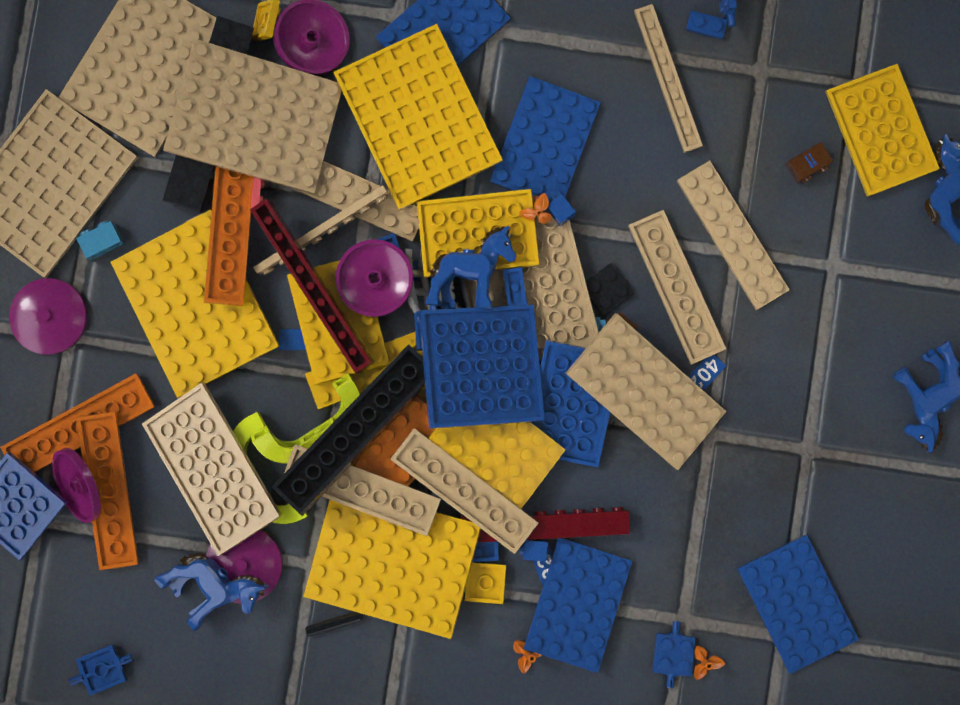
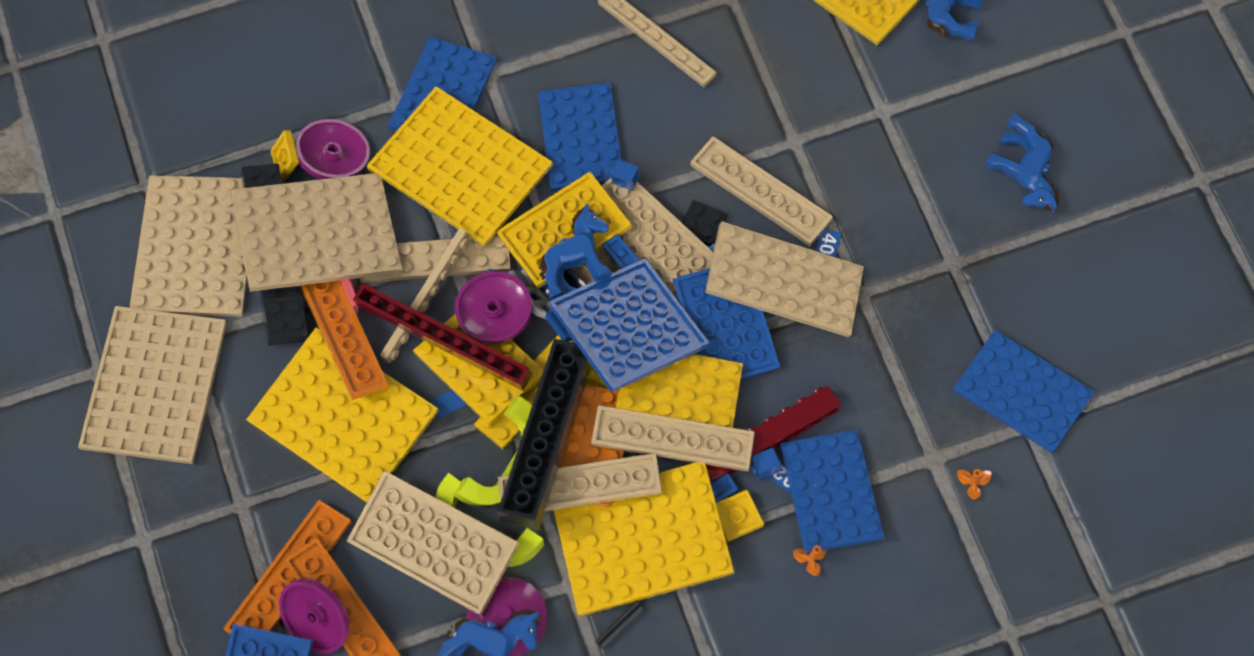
camera: 25 degrees left, 20 degrees down
(48, 316) = (211, 495): magenta dish -> none
(100, 240) = (227, 405): dark azure brick -> none
(540, 204) = (600, 188): orange plant -> none
(673, 654) = (941, 489): blue plate -> none
(732, 235) = (784, 129): tan plate -> none
(809, 162) = (812, 42): reddish brown brick -> none

